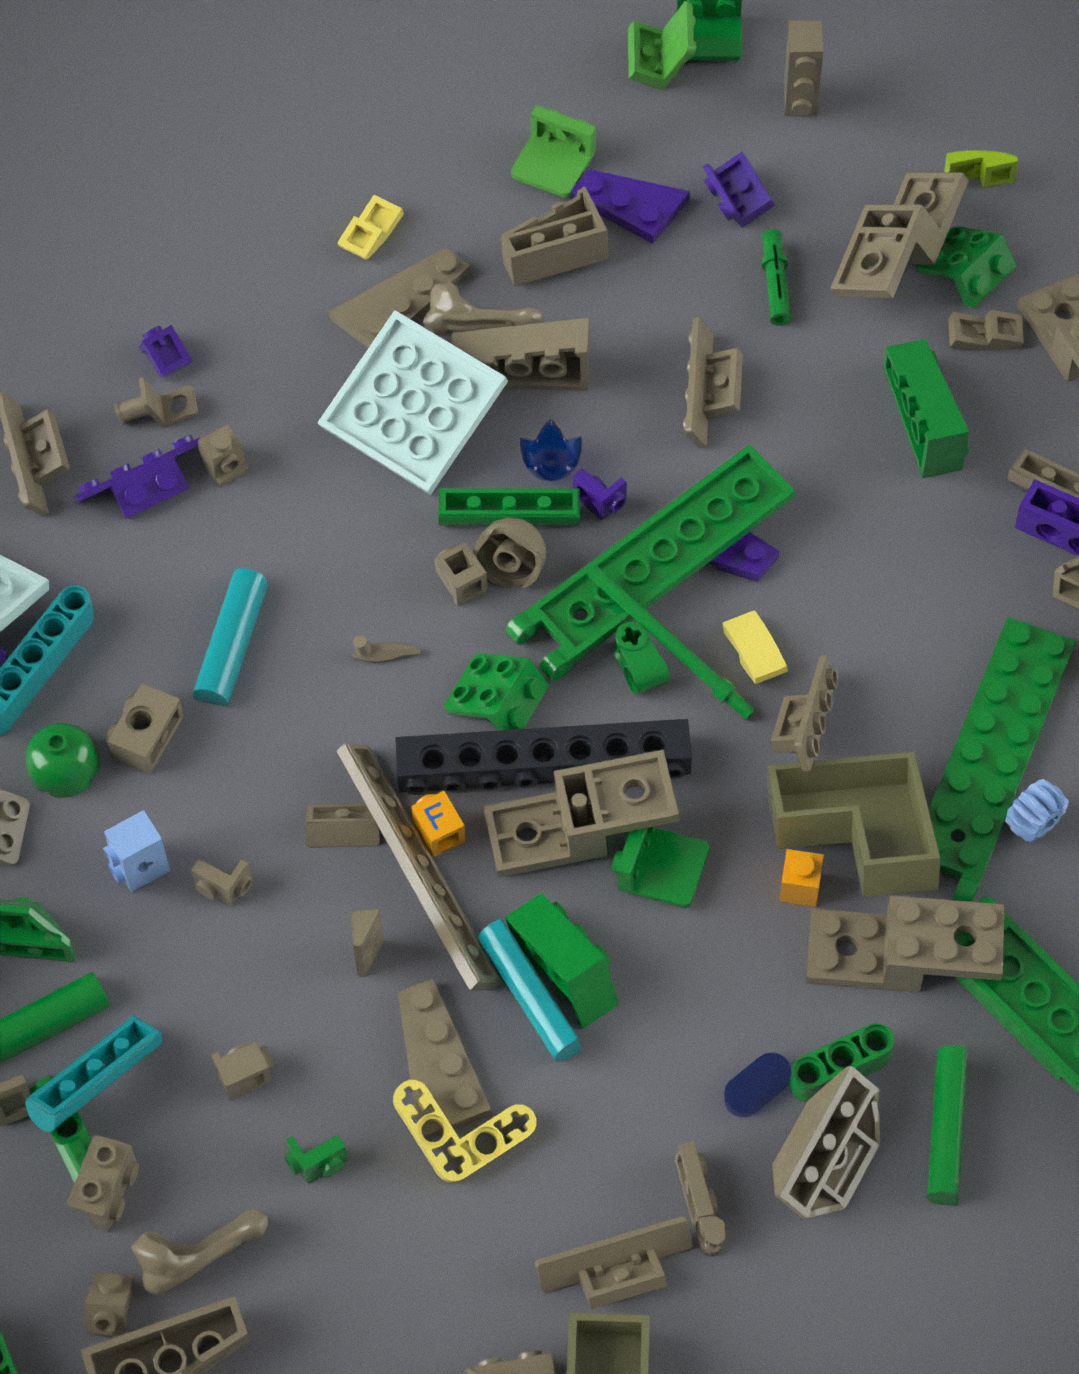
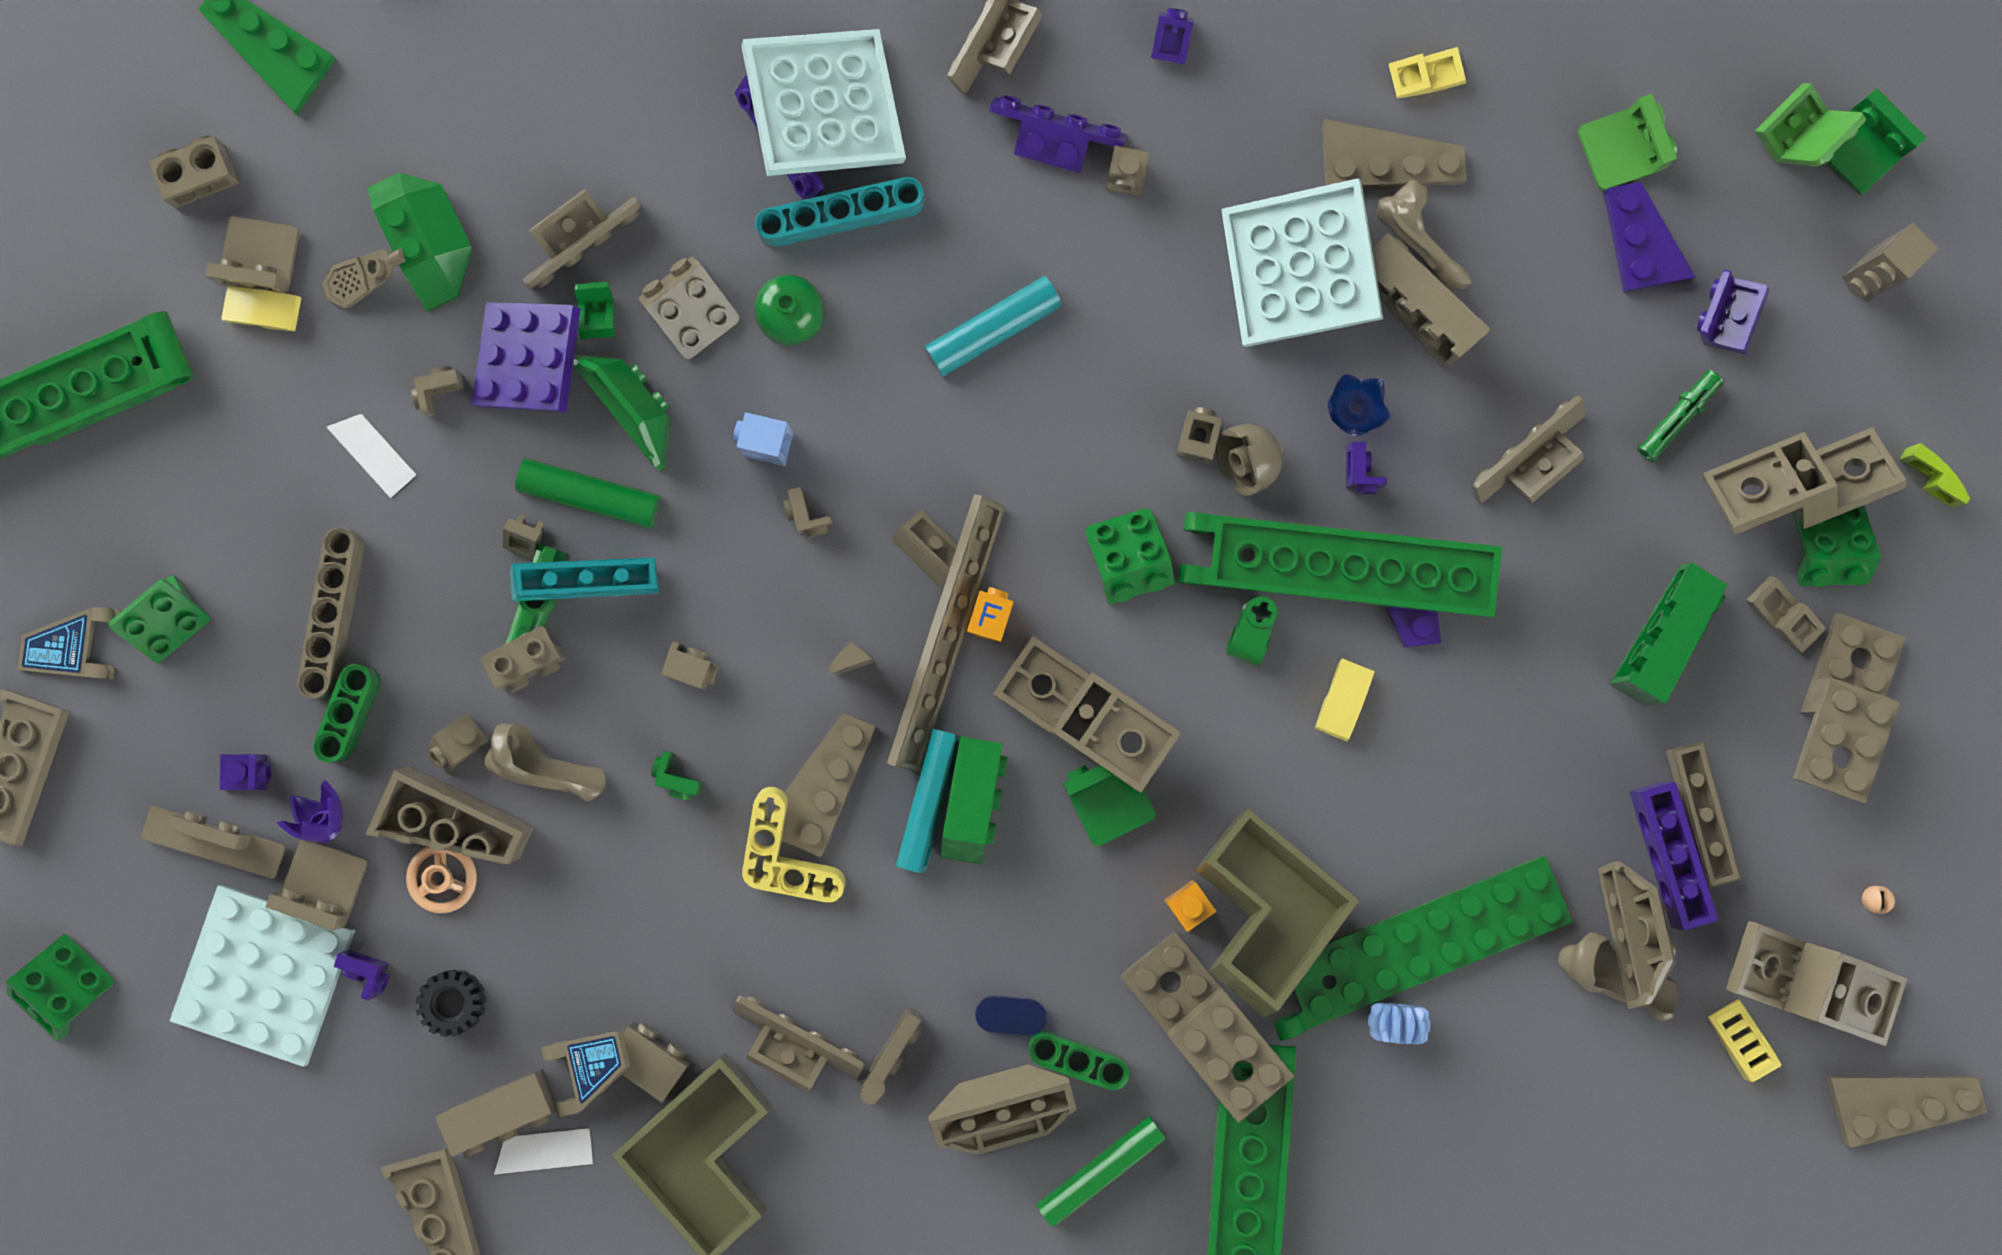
camera: 45 degrees right, 25 degrees up
(144, 747) = (852, 358): dark tan brick -> none
(157, 405) = (1123, 78): dark tan bracket -> none
(380, 651) = (1088, 441): dark tan bar -> none
(488, 505) = (1287, 416): green brick -> none
(524, 747) = (1024, 548): black brick -> none
(556, 242) = (1548, 226): dark tan wedge -> none
(722, 688) = (1287, 710): green bar -> none
(803, 716) = (1312, 793): dark tan bracket -> none

